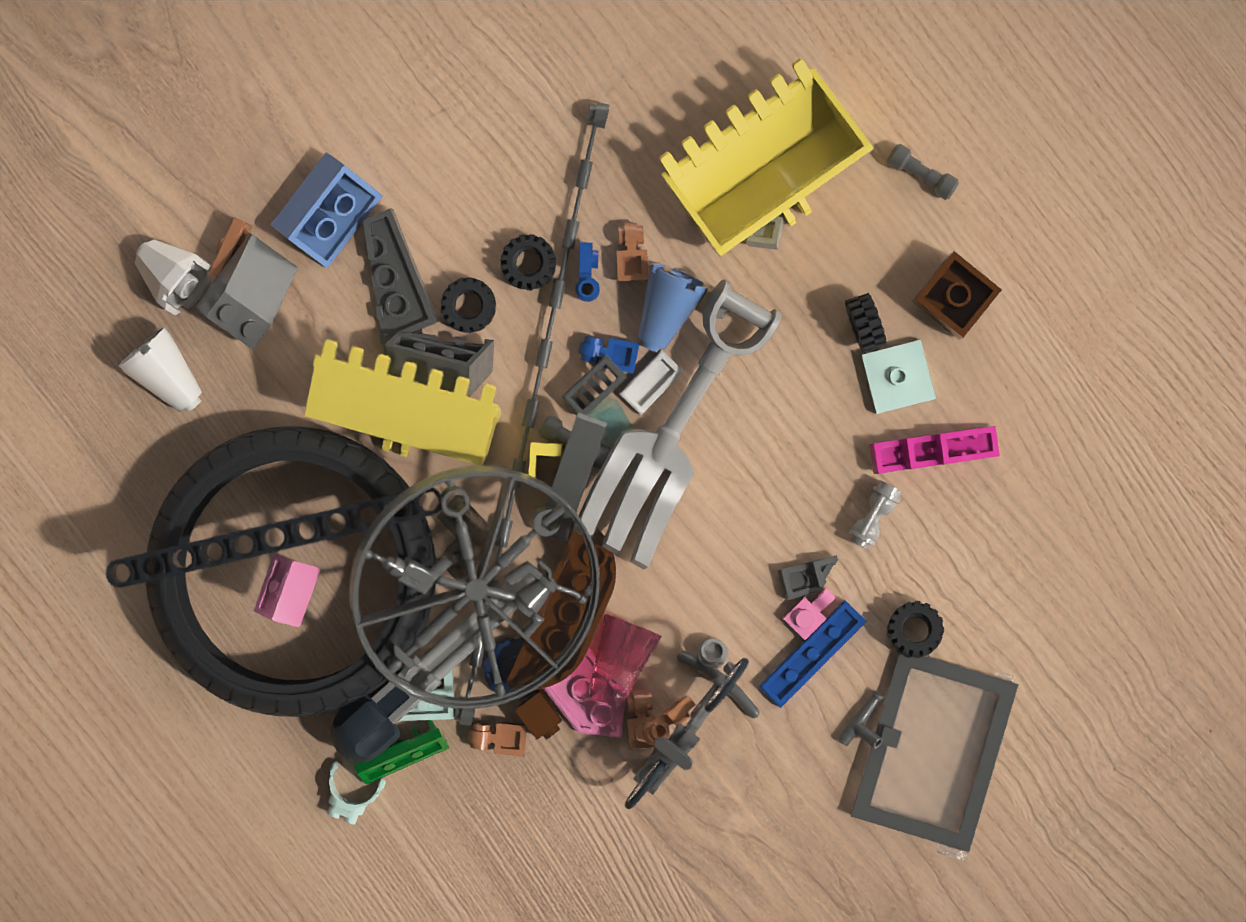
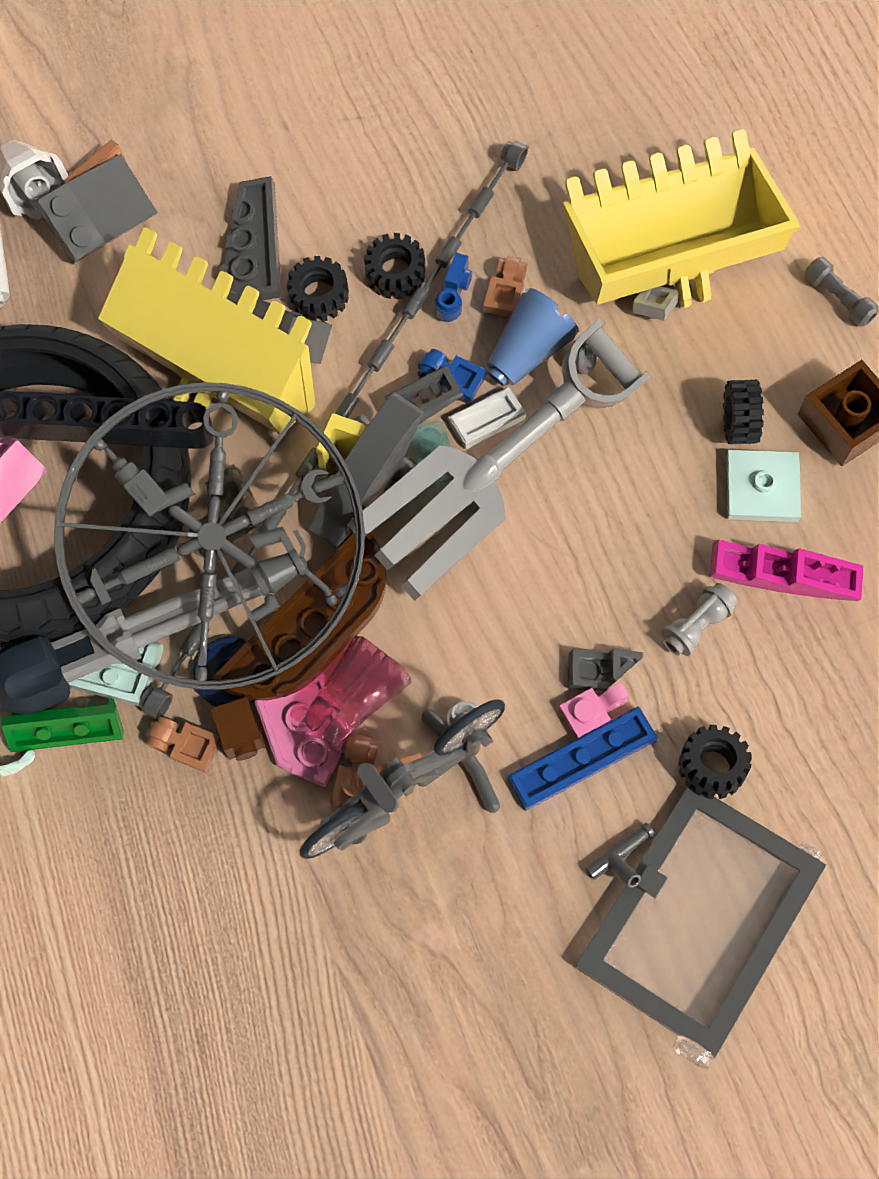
camera: 20 degrees right, 20 degrees down
(326, 210) = (207, 165): medium blue slope -> none

